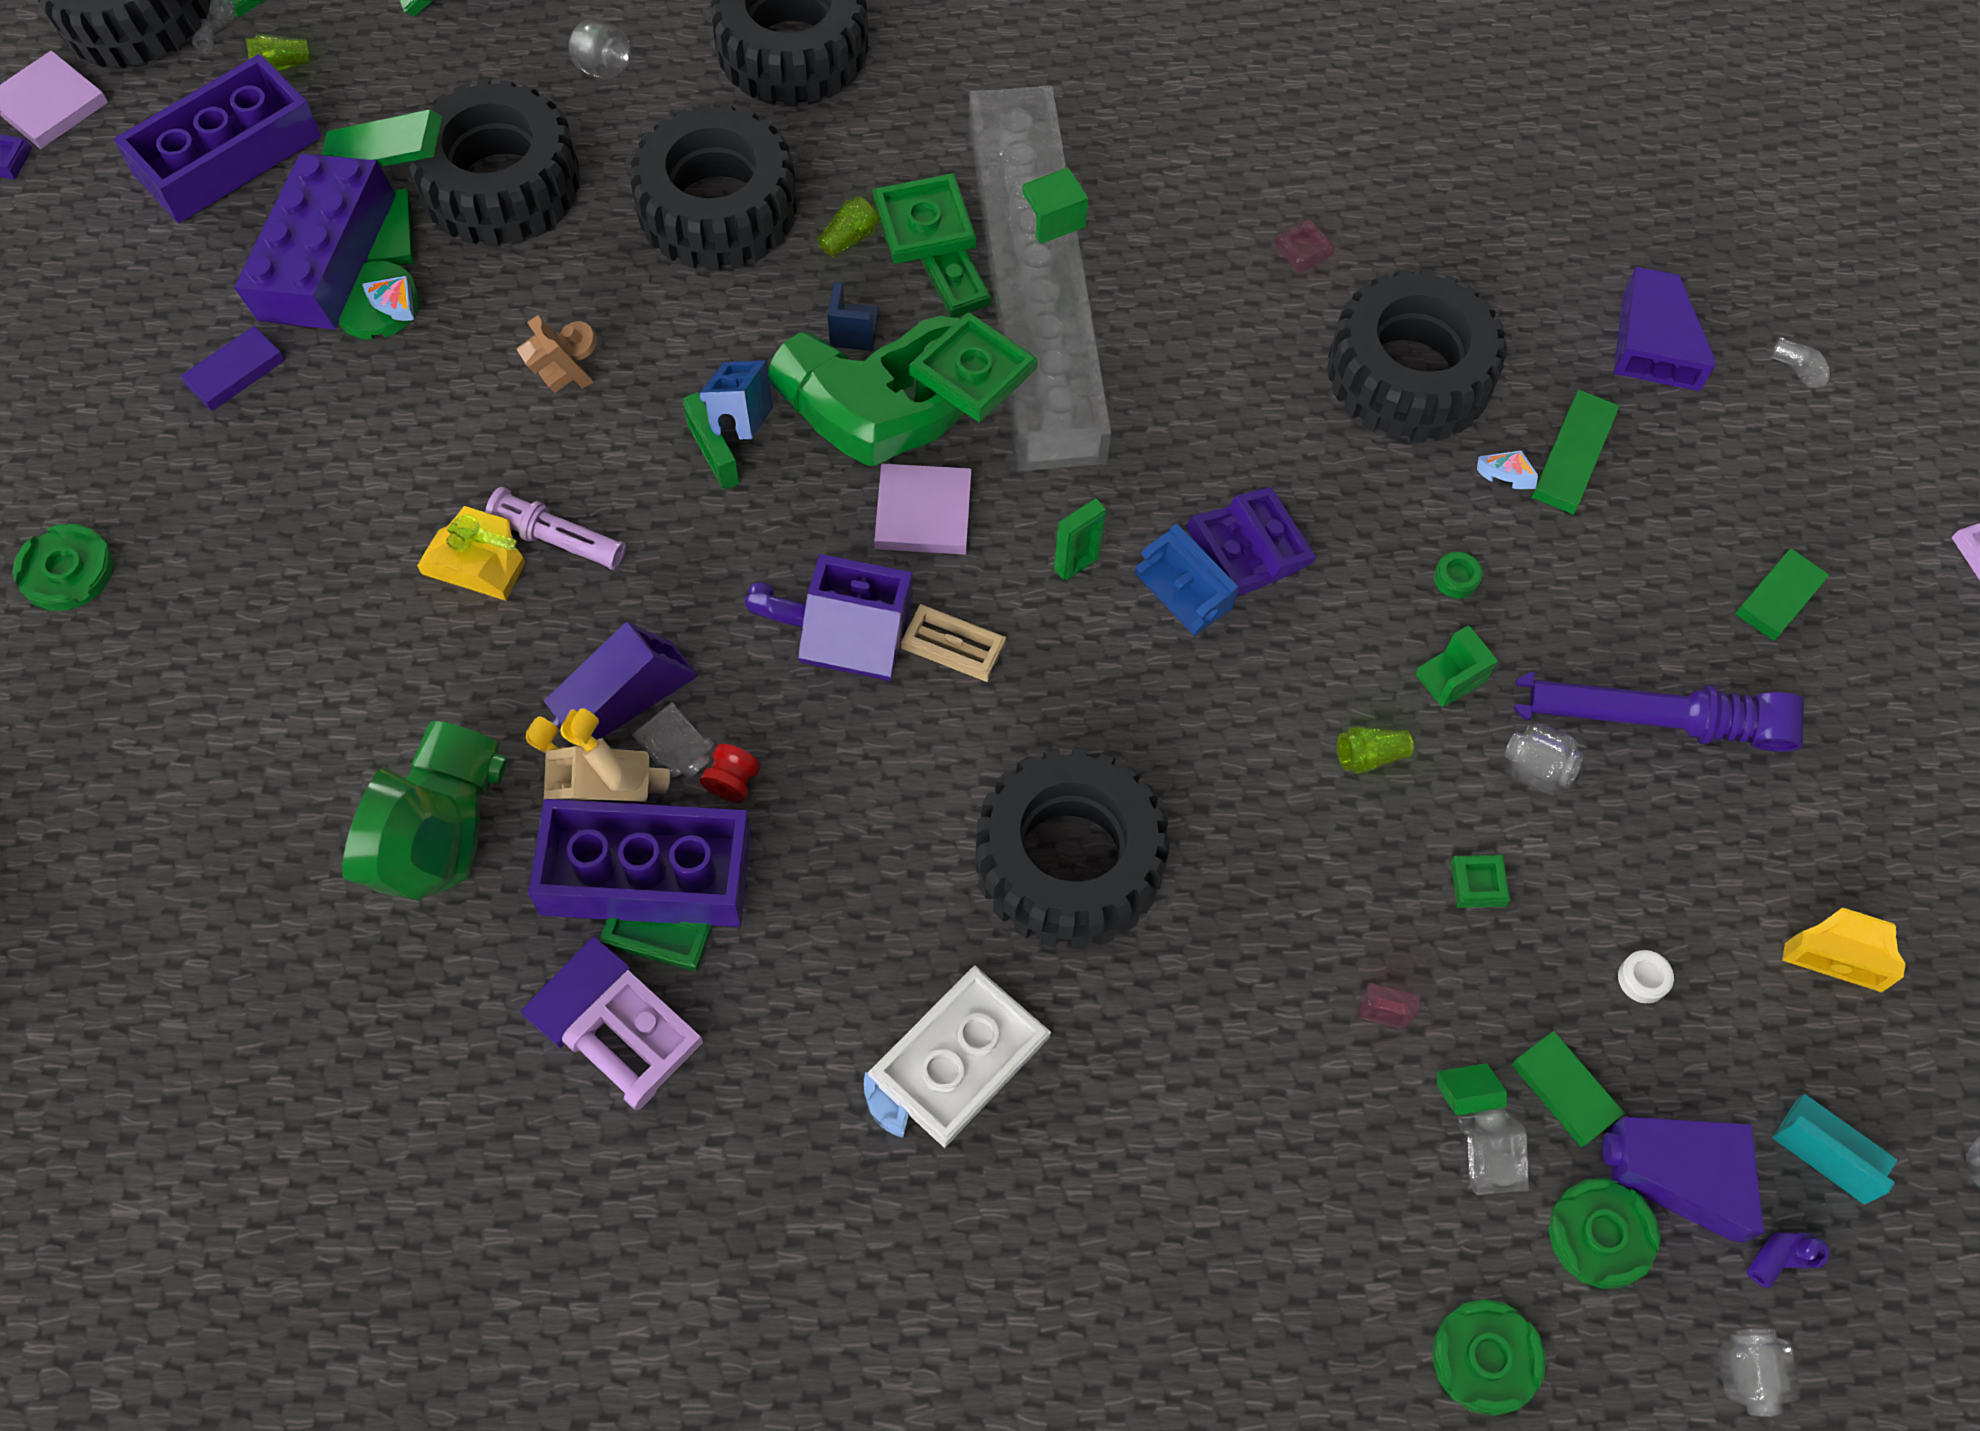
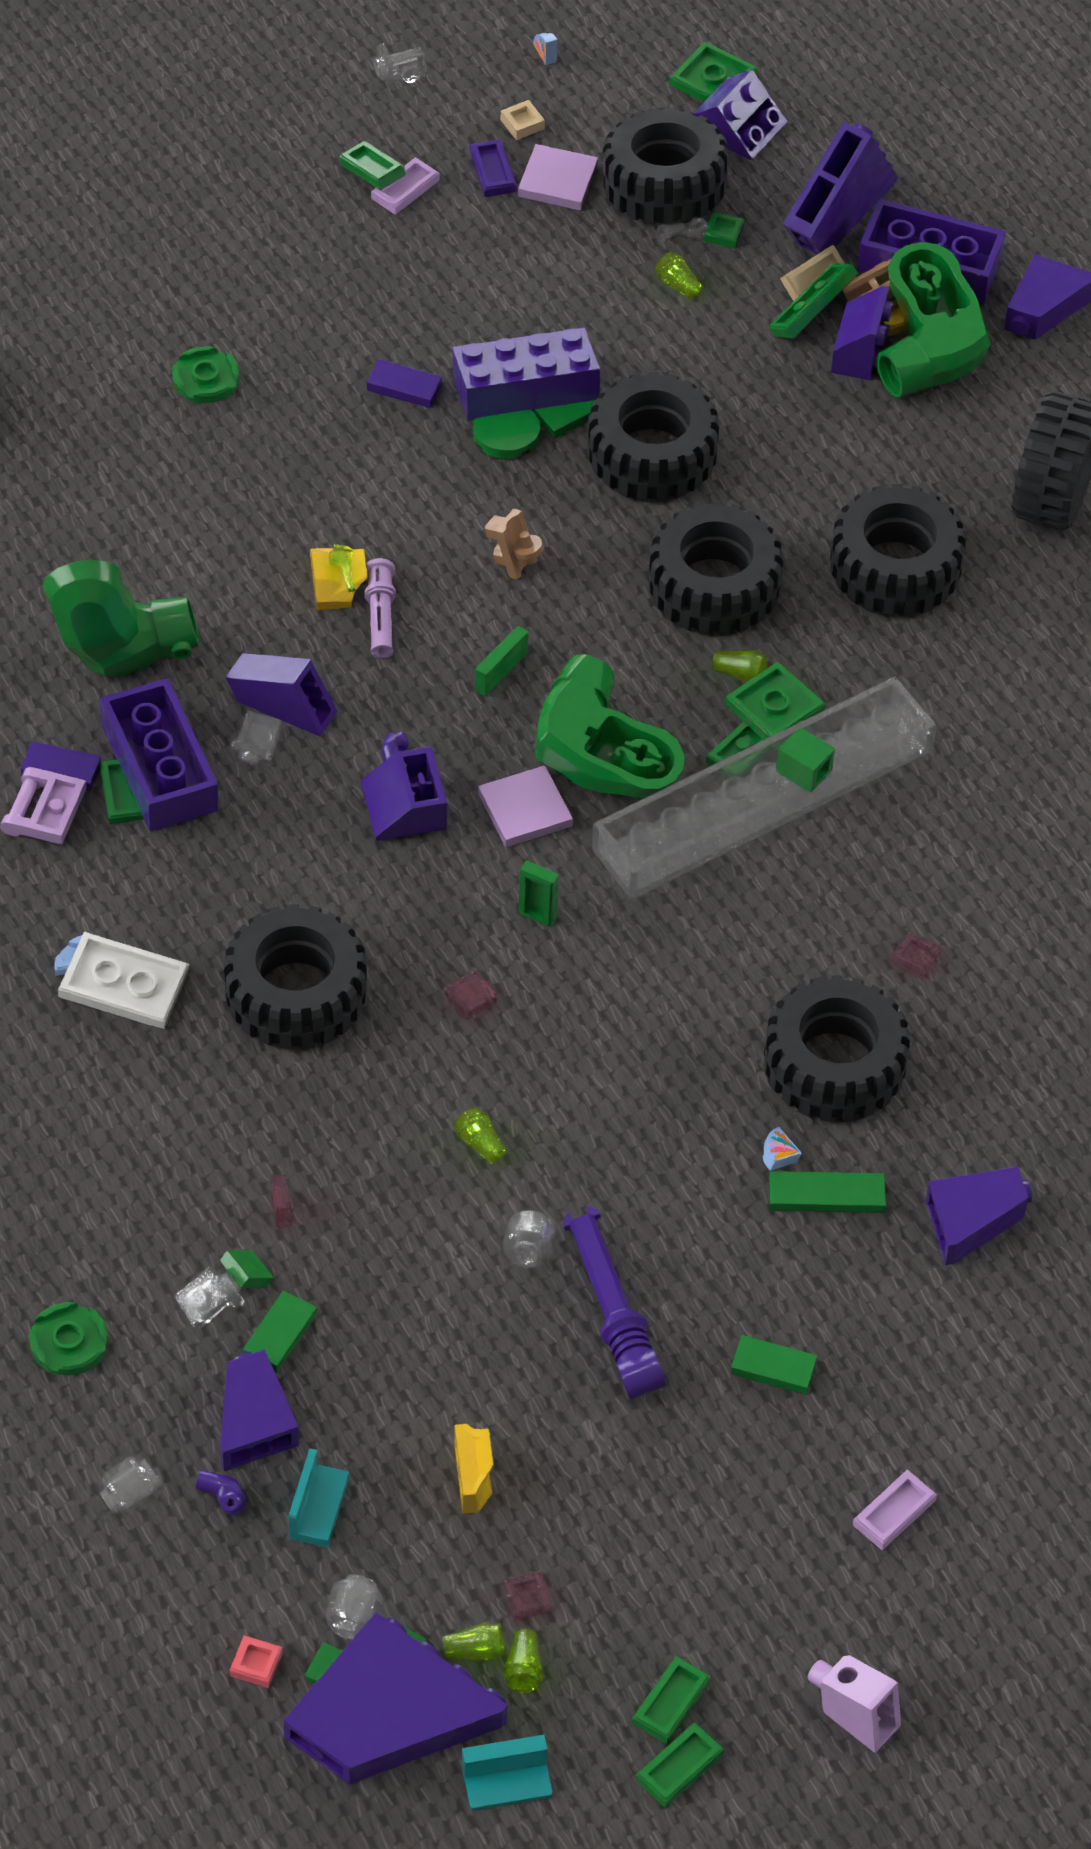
camera: 65 degrees right, 10 degrees down
(218, 137) = (576, 280): dark purple brick -> none
(387, 140) = (617, 364): green tile -> none
(391, 297) = (506, 435): tile -> none
(594, 769) = (202, 699): tan torso -> none
(599, 48) = (805, 451): clear head -> none
(730, 773) = (252, 777): red wheel -> none
(740, 391) = (534, 654): blue hinge -> none
(851, 324) = (655, 697): dark blue panel -> none
(949, 658) = (427, 888): tan tile -> none
(973, 367) = (635, 769): green tile -> none
(1163, 675) = (470, 994): none -> clear pink tile
(1186, 580) = (555, 978): blue hinge -> none
(1252, 540) = (614, 1009): dark purple slope -> none
(1458, 575) = (664, 1148): green tile -> none
(1459, 669) = (576, 1170): green panel -> none
(1480, 881) = (412, 1235): green tile -> none
(1589, 1241) = (186, 1394): green tile -> none
(1646, 976) = (392, 1357): white tile -> none
(1807, 362) = (1019, 1325): clear arm -> none

